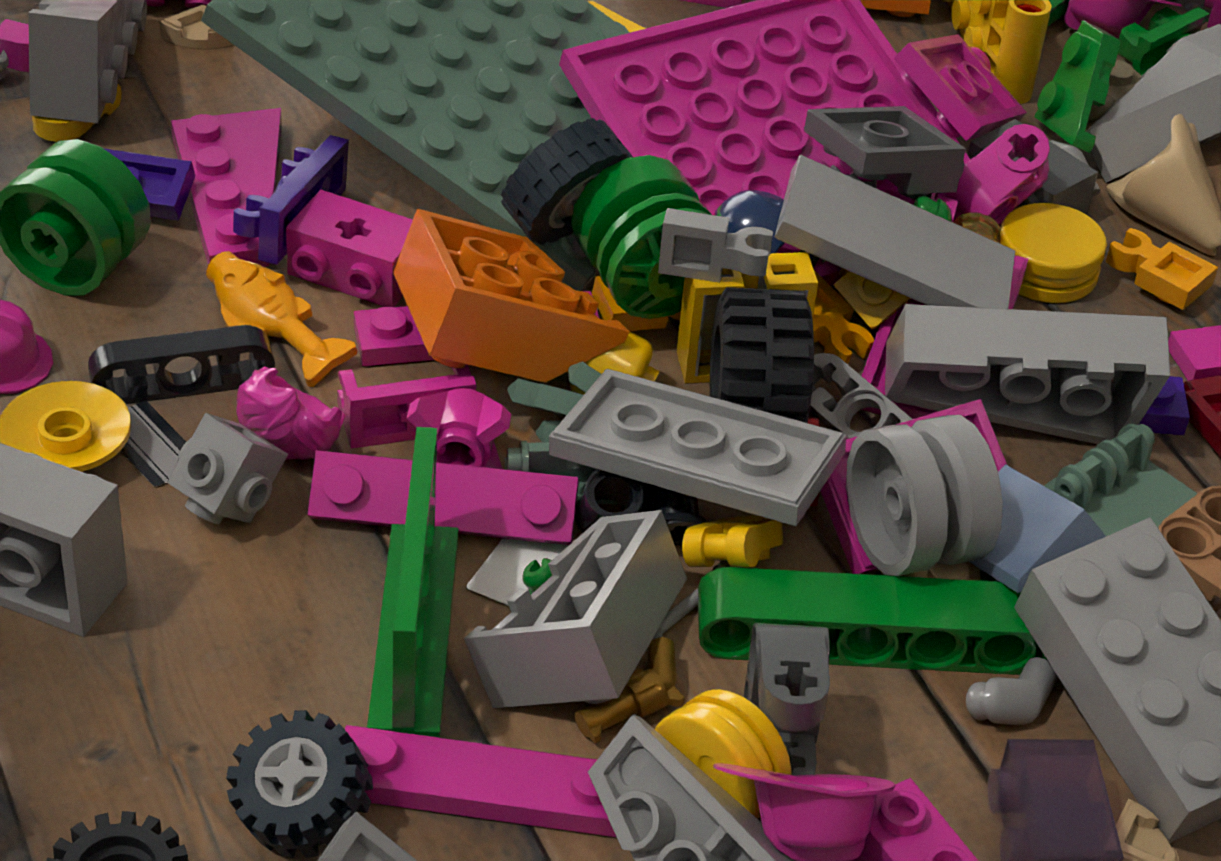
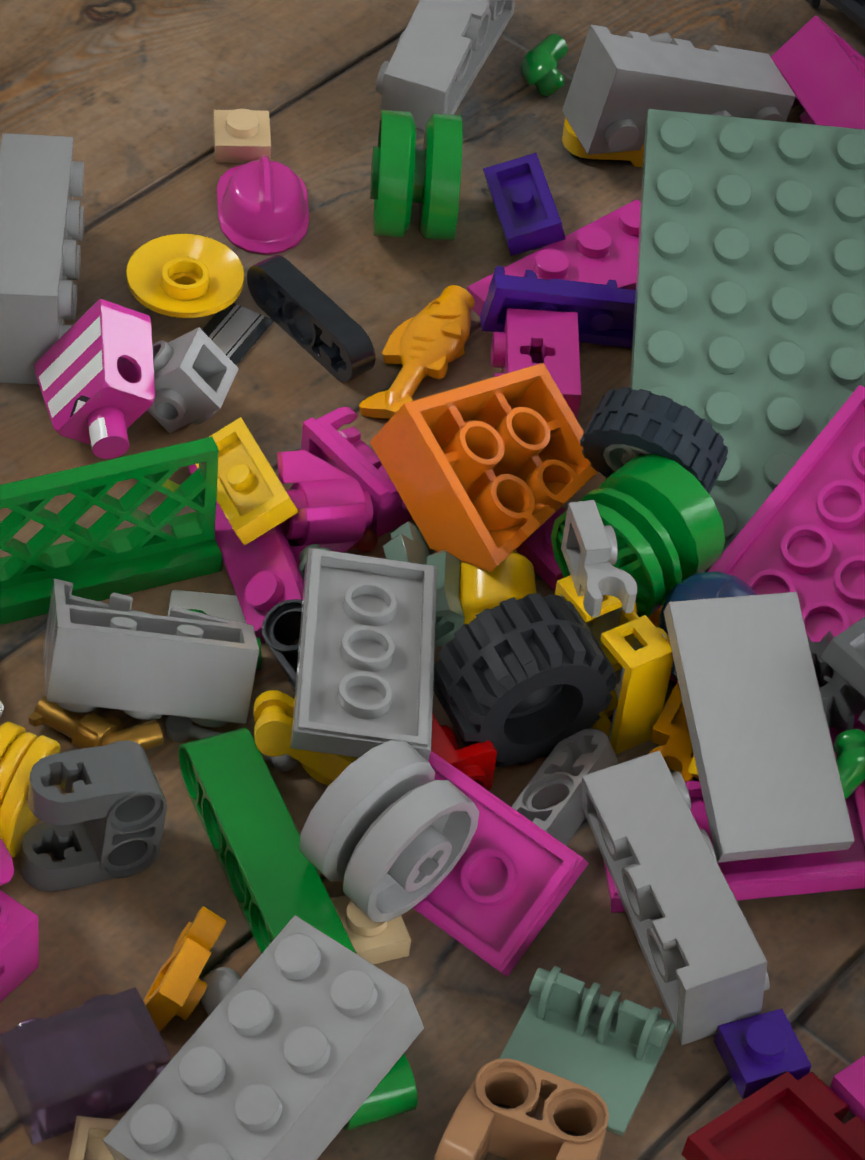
camera: 65 degrees right, 5 degrees up
(199, 523) = (100, 377): none -> dark pink torso
(287, 415) = (276, 393): dark pink hair -> none
(385, 457) = (248, 485): none -> yellow plate
(975, 715) = (177, 984): none -> light orange plate
(1034, 529) = (450, 959): sand blue slope -> none

